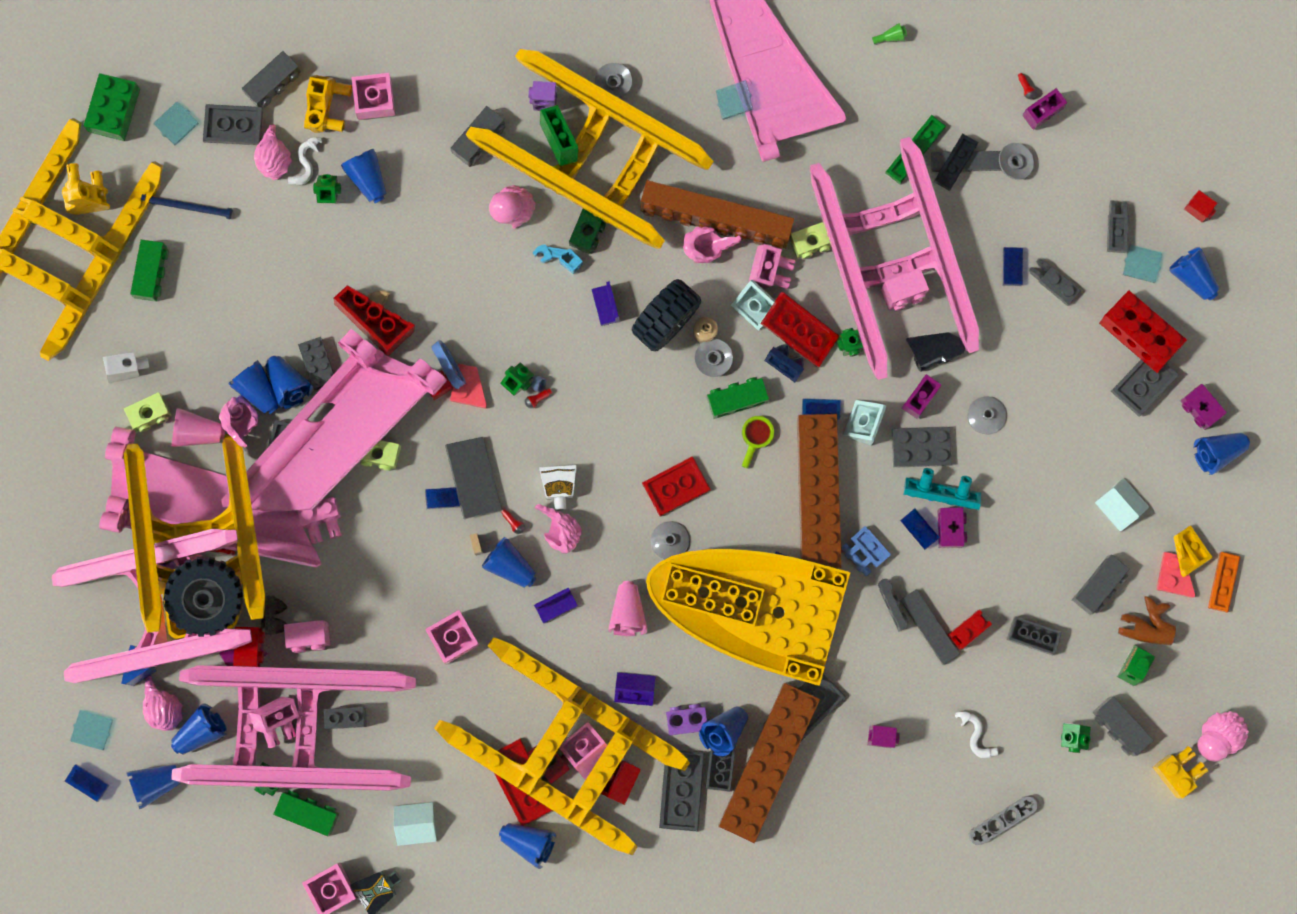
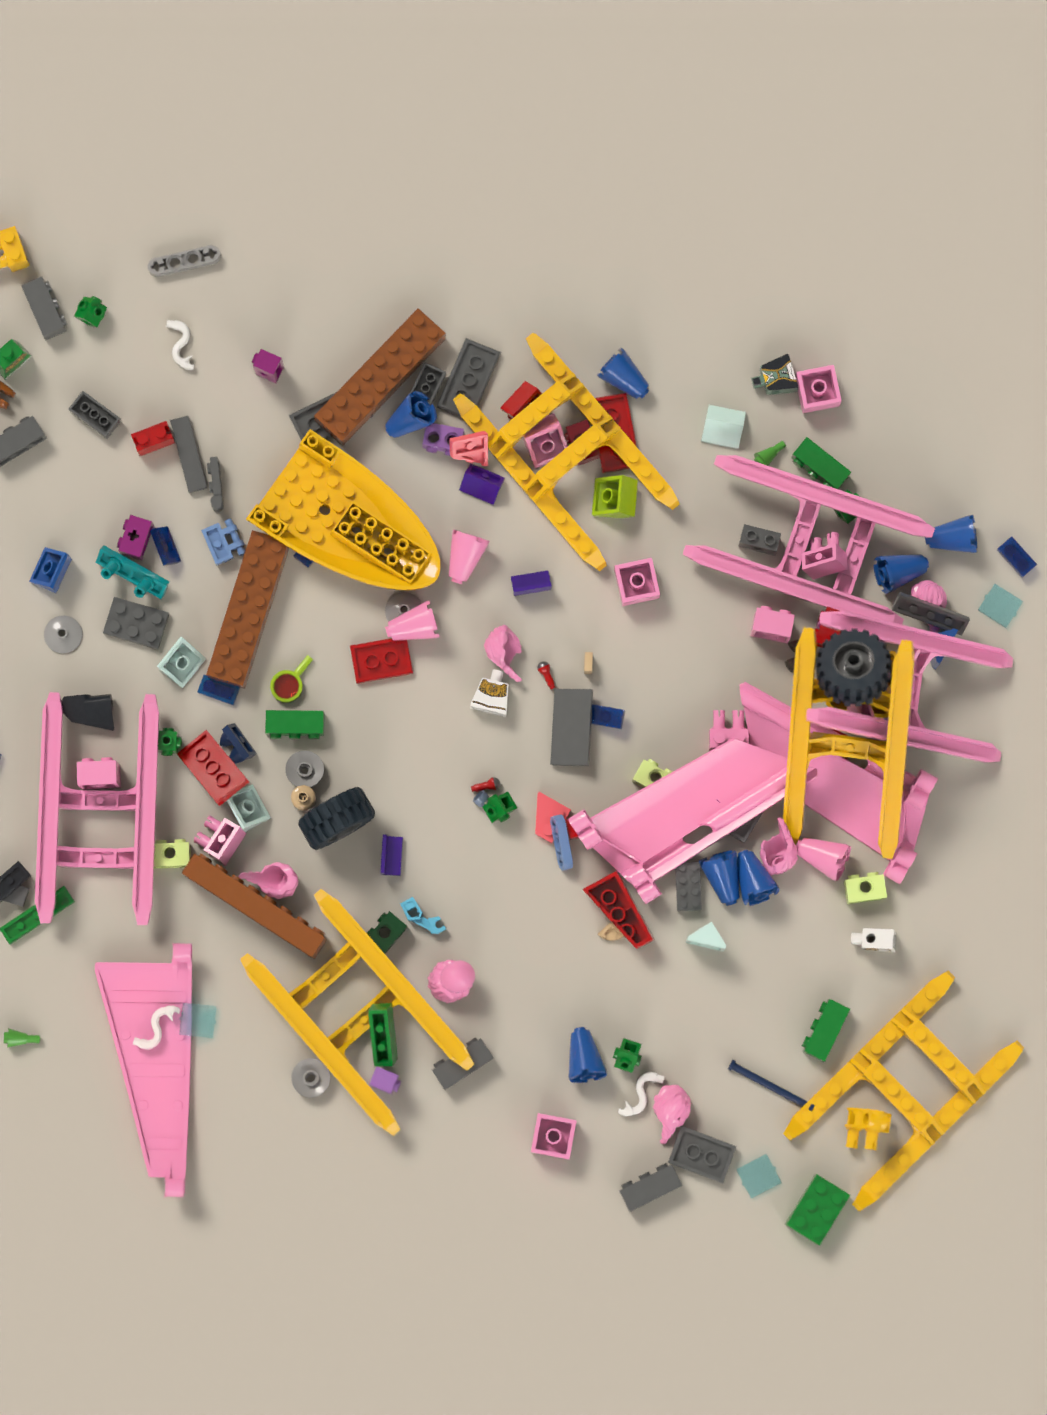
camera: 160 degrees left, 0 degrees up
(154, 694) = (930, 613): none -> dark grey tile
(284, 317) = (707, 937): none -> light aqua slope
(319, 103) = (610, 1143): yellow piece -> none
(364, 804) = (766, 456): none -> bright green cone
(500, 716) = (615, 497): none -> lime slope
(509, 564) = (563, 633): blue cone -> none
(654, 526) = (413, 624): none -> bright pink cone
(656, 717) = (470, 448): none -> coral wing
(772, 63) = (150, 1044): none -> white animal
(921, 396) = (119, 668): magenta brick -> none
(1021, 471) = (51, 569): none -> blue slope

